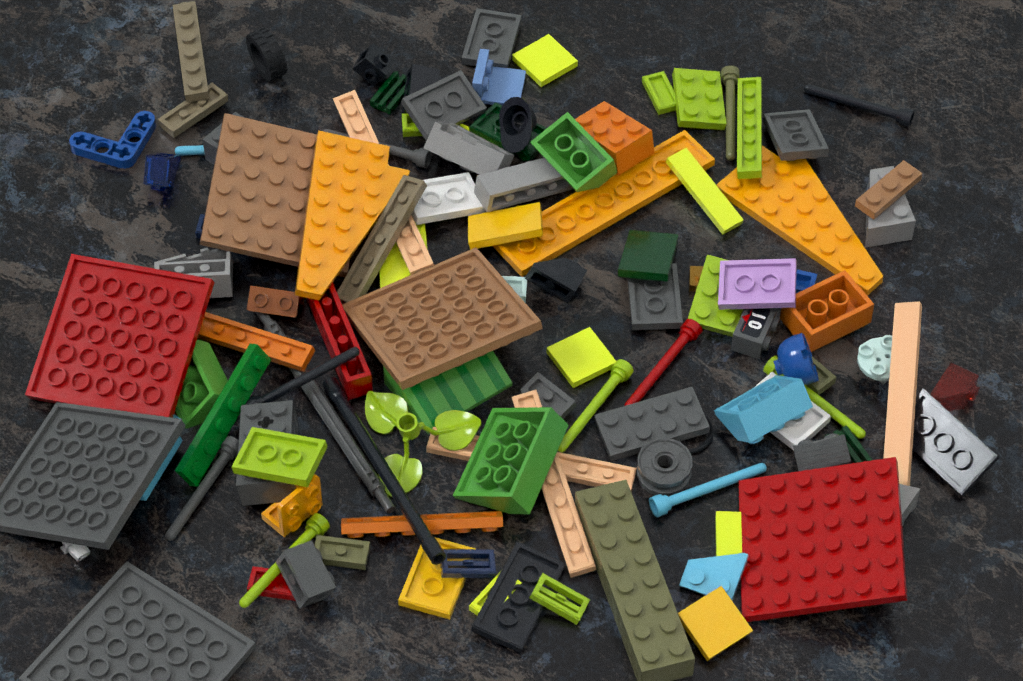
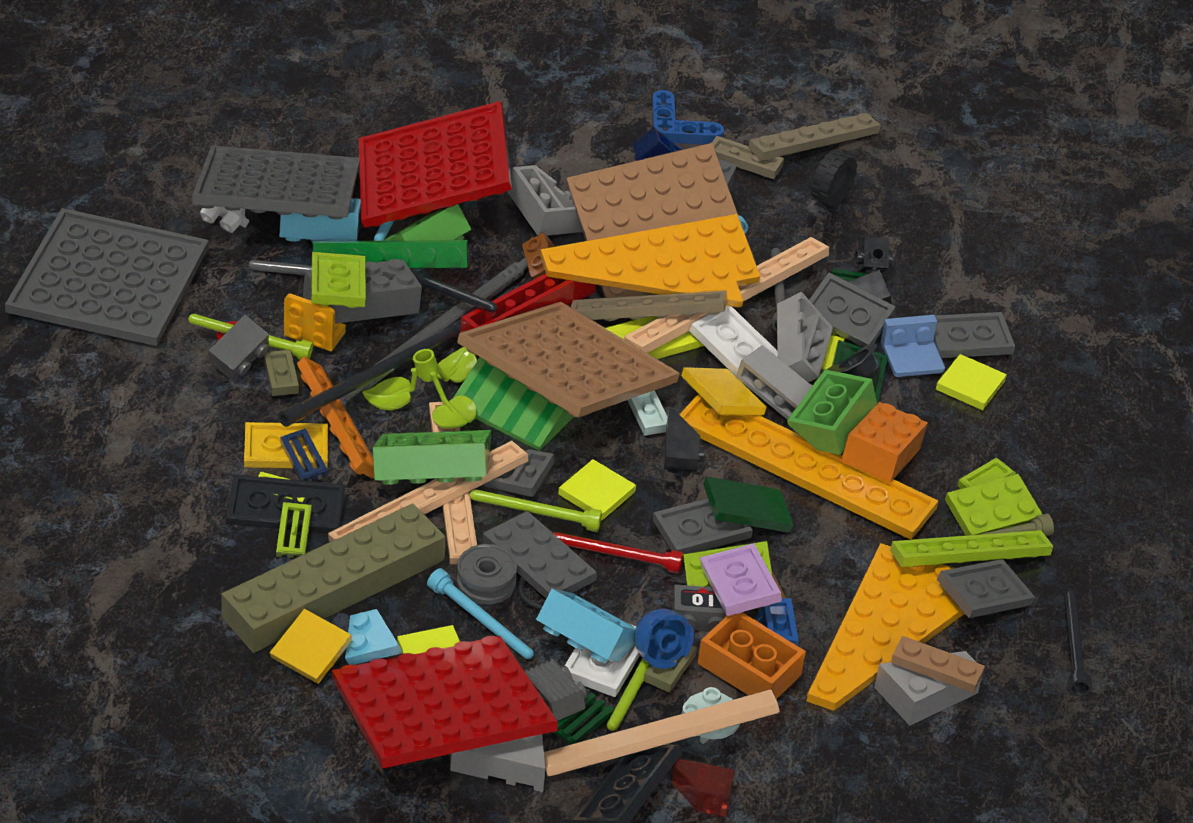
camera: 65 degrees right, 10 degrees down
(239, 336) = (487, 249): orange plate -> none
(704, 191) = (862, 532): neon yellow tile -> none

